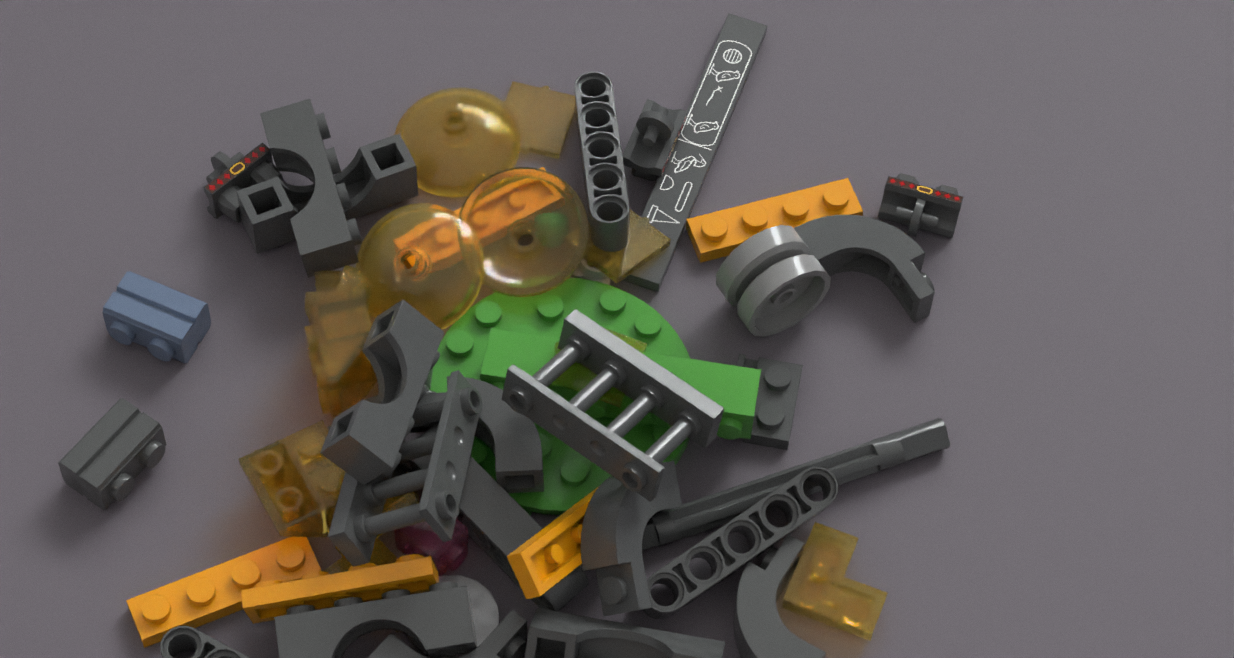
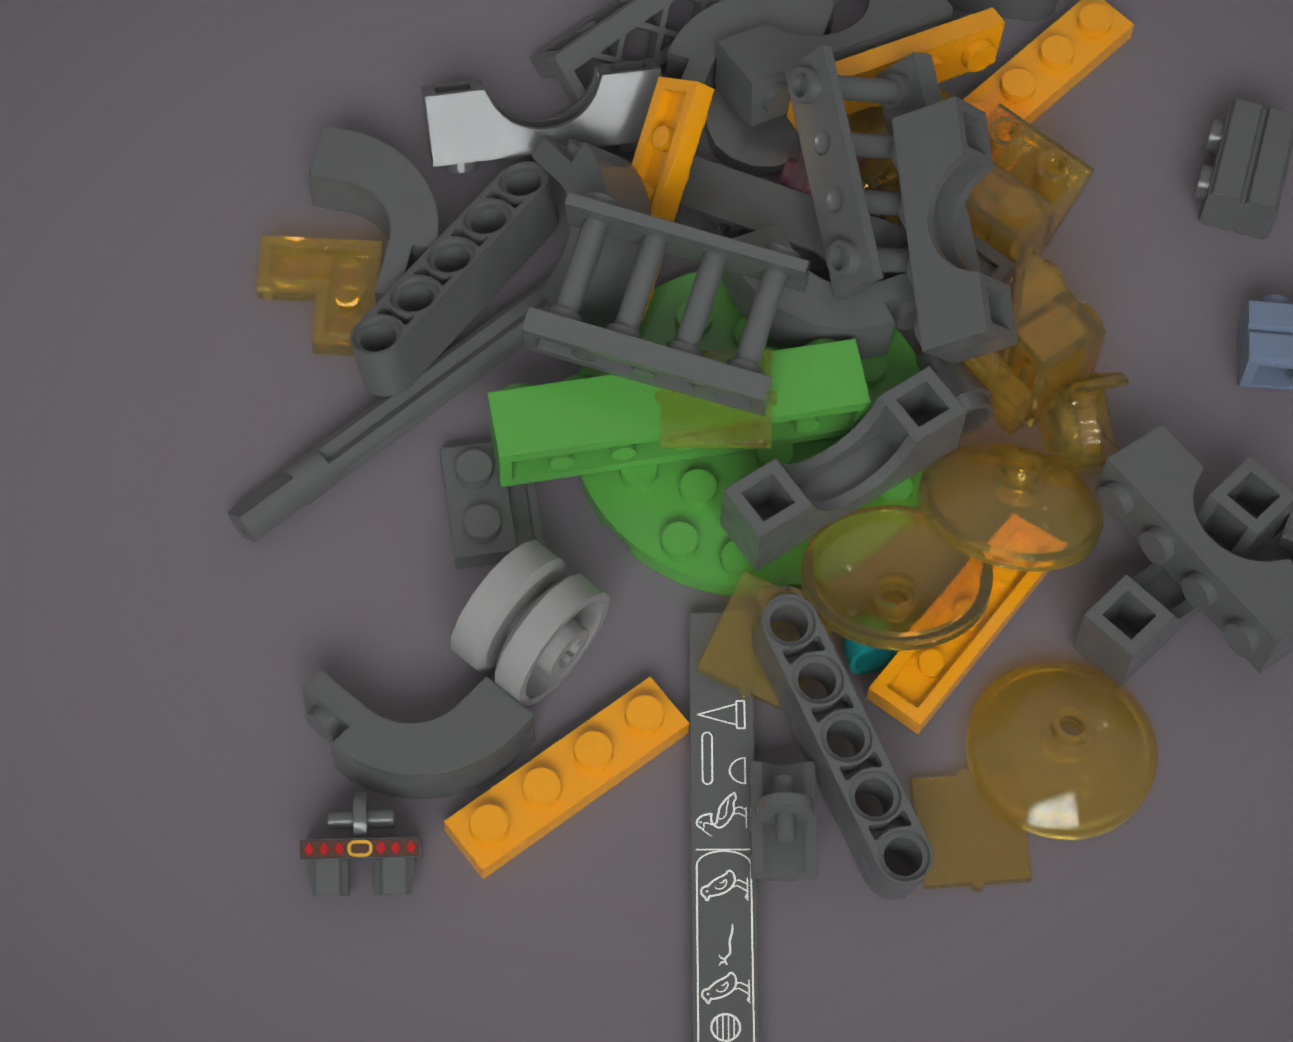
camera: 160 degrees right, 5 degrees up
(472, 307) = (895, 440): none -> dark grey arch

